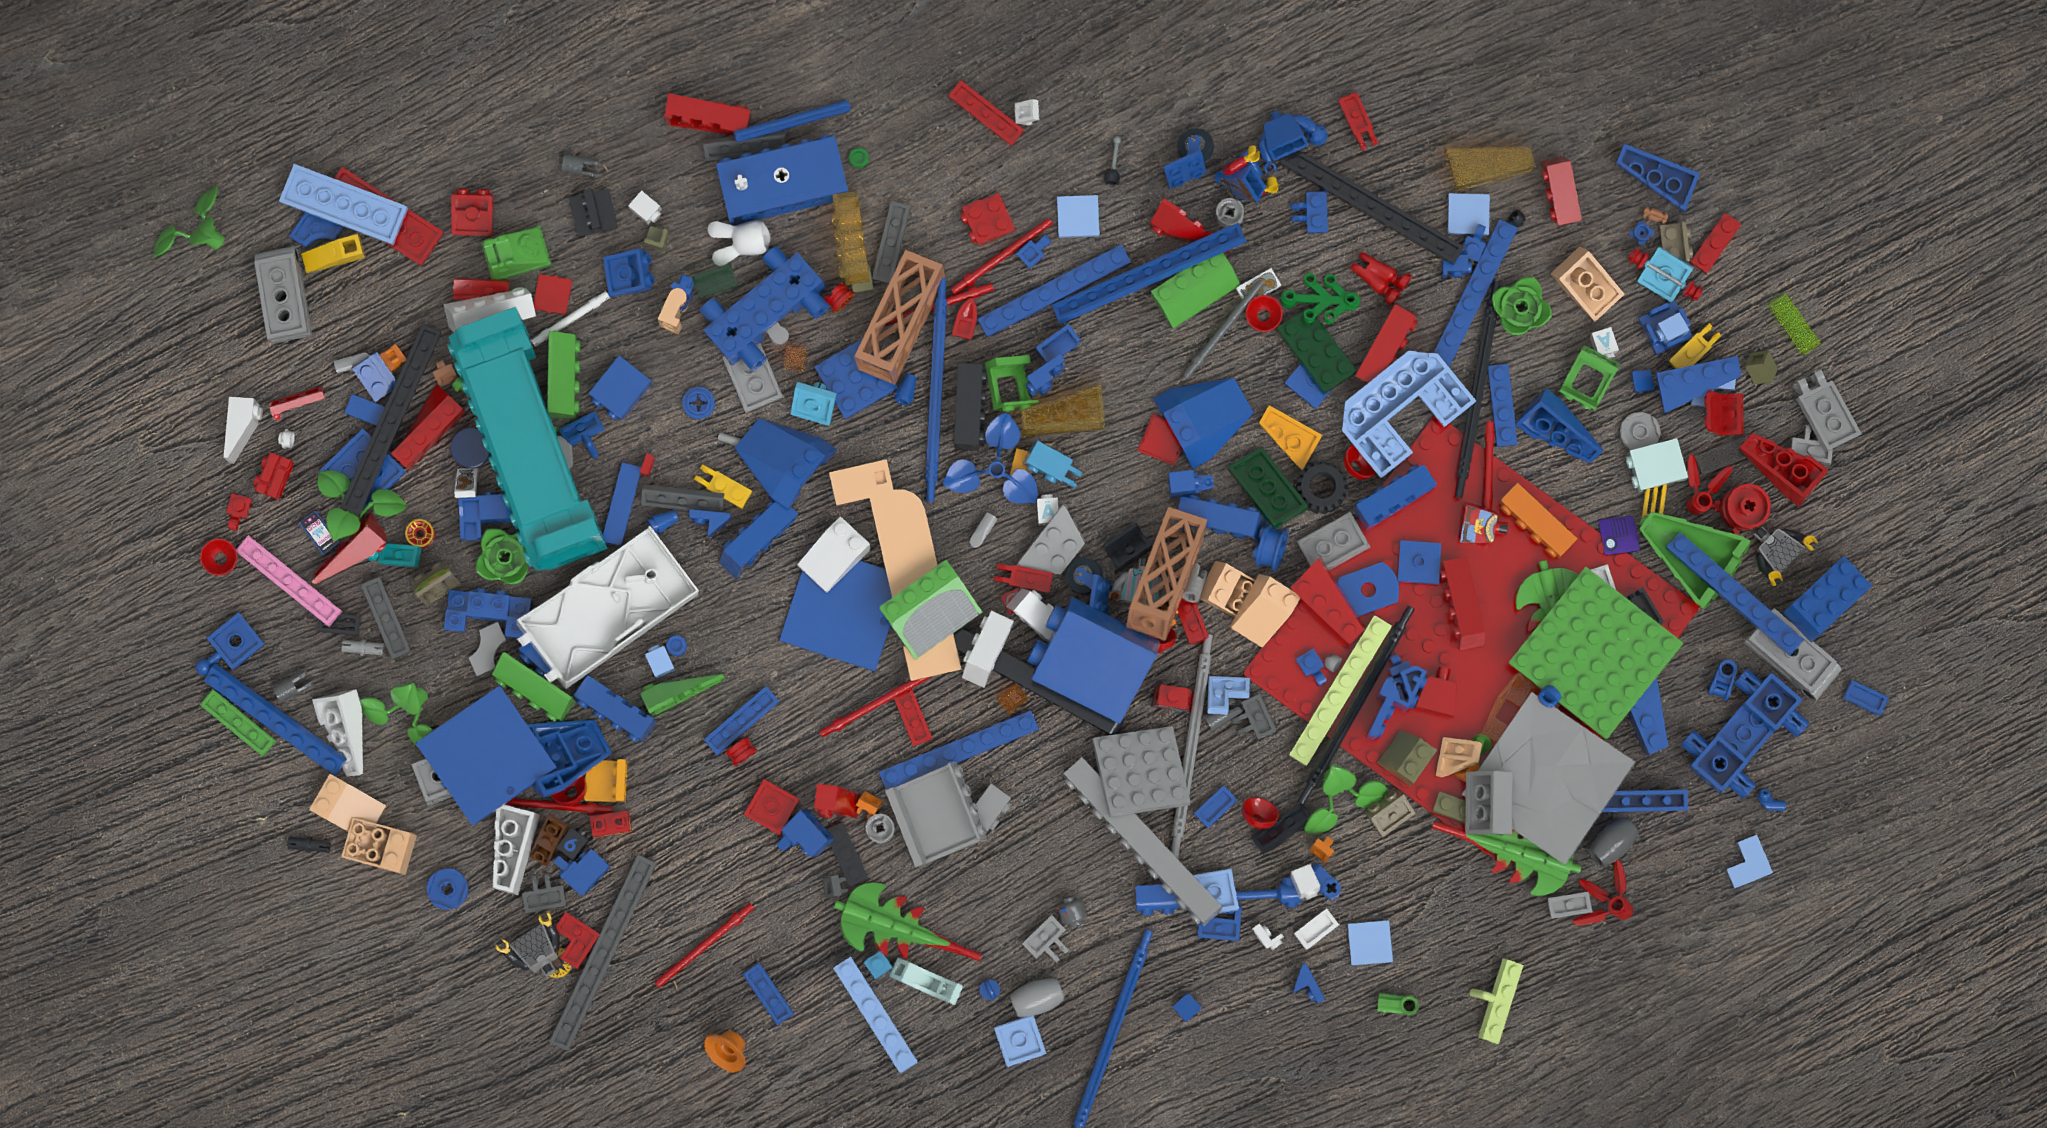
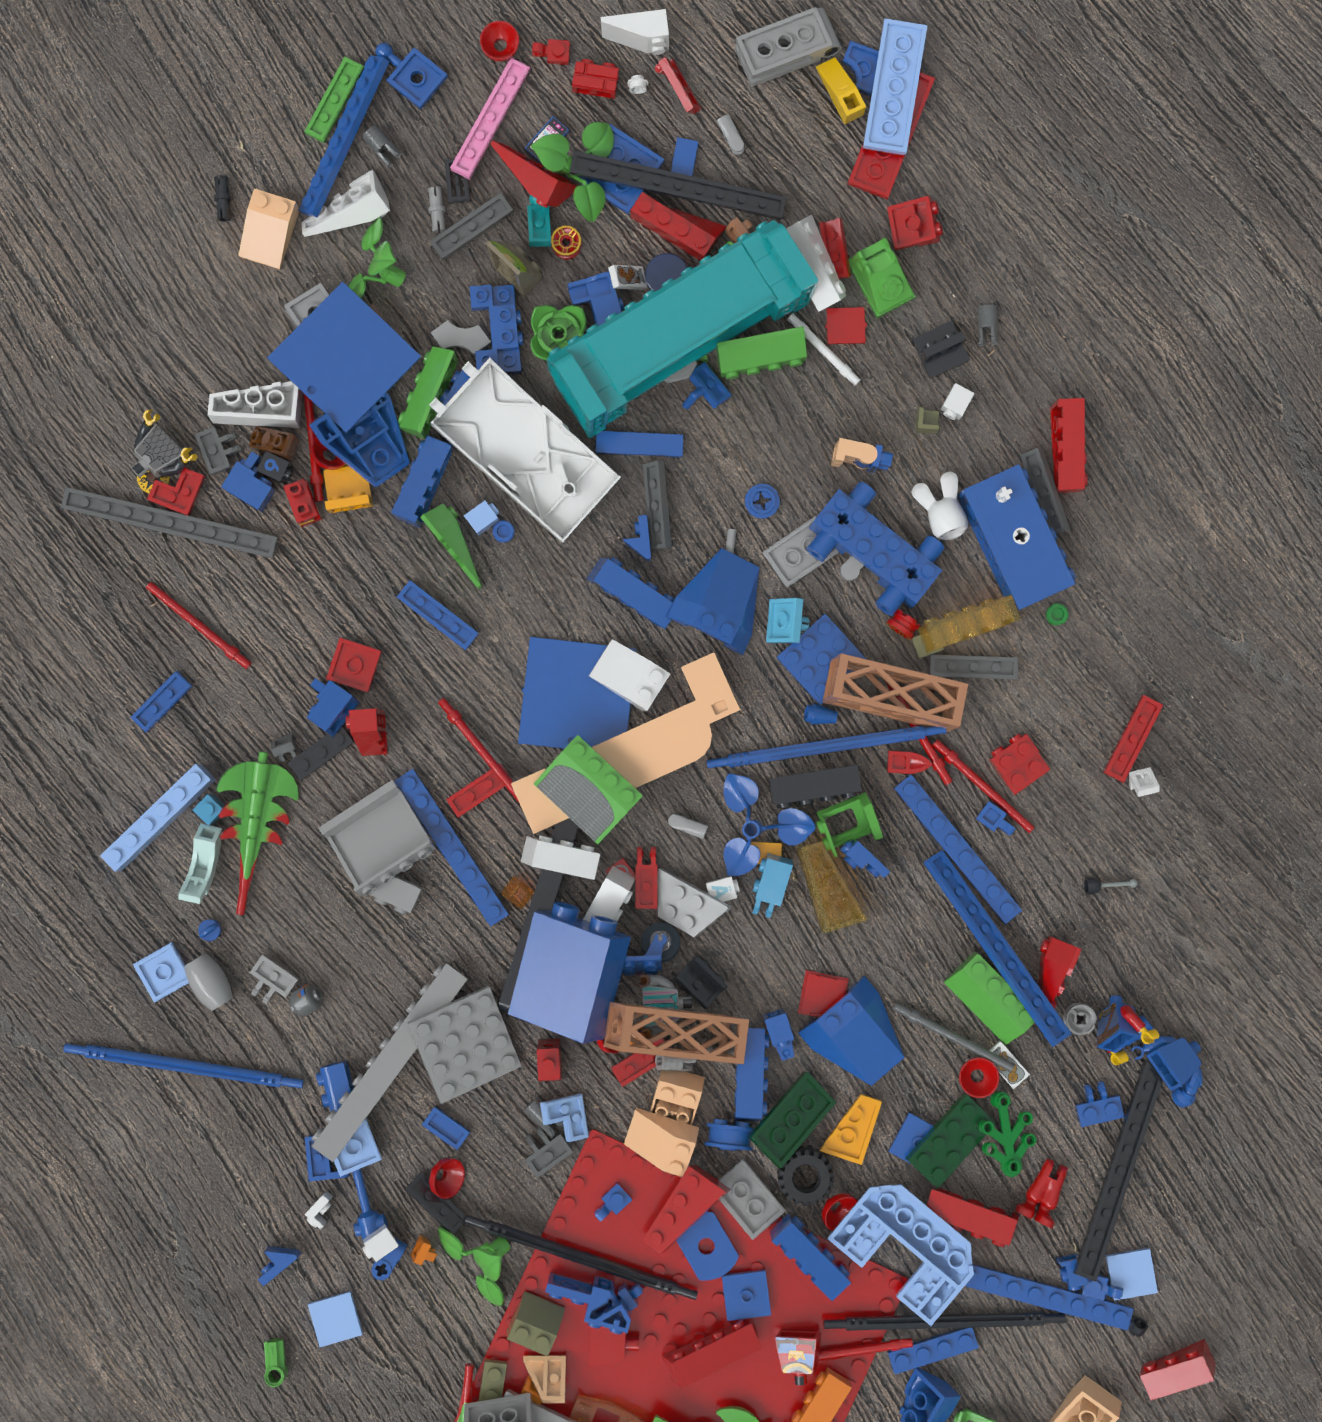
camera: 80 degrees right, 5 degrees up
(375, 376) = (721, 159): plate -> none
(379, 846) = (233, 270): light nougat slope -> none
(393, 358) = (745, 175): orange tile -> none
(459, 886) = (197, 340): blue plate -> none
(619, 389) = (759, 415): blue brick -> none
(628, 272) = (884, 399): blue plate -> none
(647, 465) = (685, 461): red tile -> none
(662, 521) = (629, 489): blue cone -> none
(715, 281) = (894, 491): clear green panel -> none
(726, 1050) = (92, 671): orange hat -> none
(733, 491) = (681, 543): yellow hinge -> none
(741, 751) = (404, 621): red wheel -> none
(792, 121) = (1081, 535): blue axle -> none
(795, 358) = (829, 592): clear orange brick -> none
(868, 803) = (377, 765): orange tile -> none
(881, 837) = (361, 777): light grey wheel -> none
(1059, 343) = (900, 865): blue panel -> none
(1078, 216) = (1042, 858): light blue tile -> none
(1187, 1007) = (230, 1140): blue slope -> none
(1192, 740) = (520, 1089): light grey axle -> none
(1194, 148) = (1141, 967): blue plate -> none
(1316, 929) = (338, 1259): white tile -> none
(1332, 662) = (621, 1222): light grey hinge -> none
(1340, 690) = (592, 1237): yellowish green plate -> none
(1357, 119) = (1209, 1135): red hinge -> none
(1390, 812) = (476, 1313): dark tan bracket -> none
(1486, 164) = (1187, 1277): clear yellow wedge -> none
(1486, 742) = (570, 1399): bright green plate -> none
(1529, 293) = (1038, 1368): bright green brick -> none

